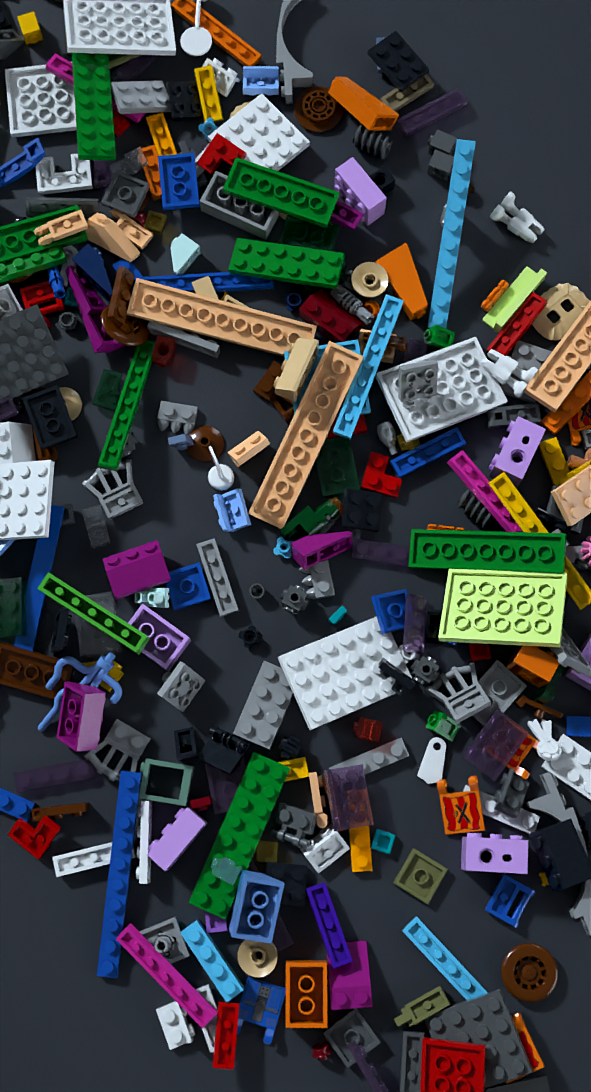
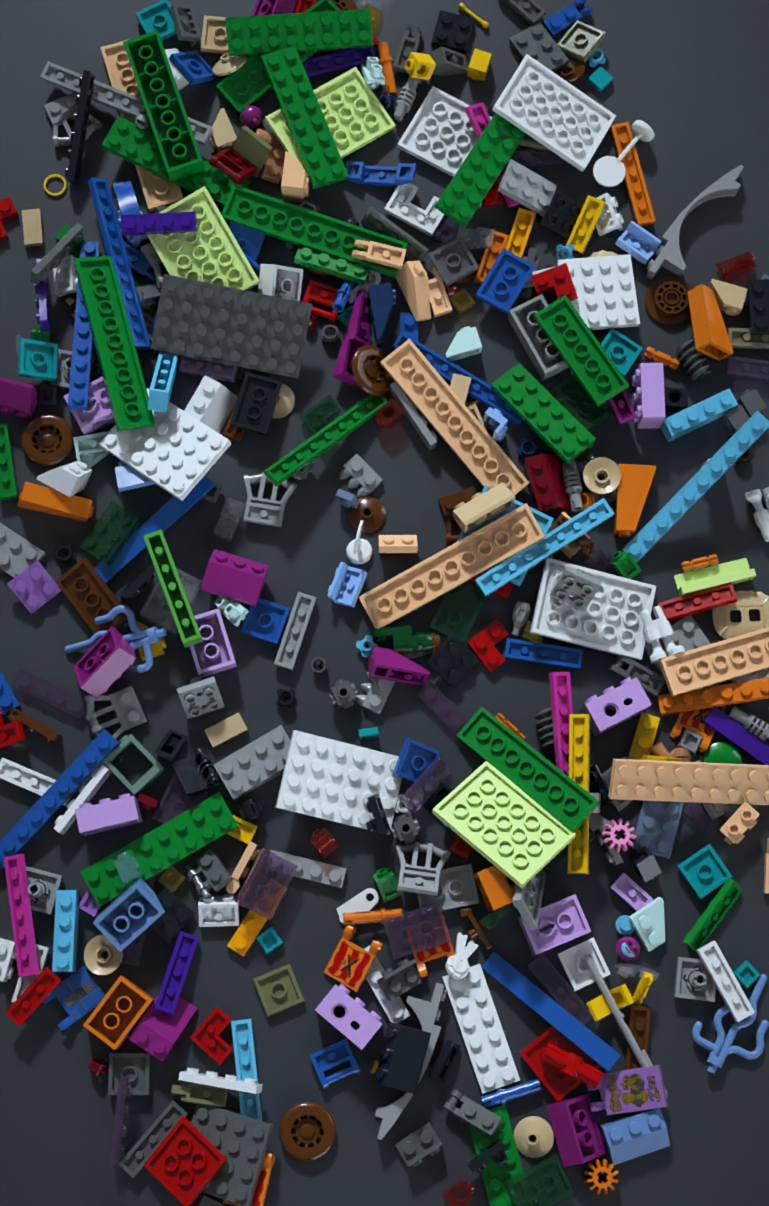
camera: 30 degrees right, 0 degrees up
(121, 296) = (385, 344): reddish brown plate -> none
(220, 698) = (226, 730): none -> tan tile
(255, 297) = (496, 422): none -> light blue bracket
(310, 170) = (621, 350): none -> teal plate
(343, 157) = (661, 357): none -> orange axle
(350, 46) = (737, 265): none -> clear red hinge
(362, 73) = (729, 296): none -> tan slope
(392, 957) = (208, 1035): none -> red plate
(408, 181) = (698, 415): none -> medium azure brick
(437, 983) = (212, 1079): none -> white plate
(449, 762) = (369, 916): none -> orange pin

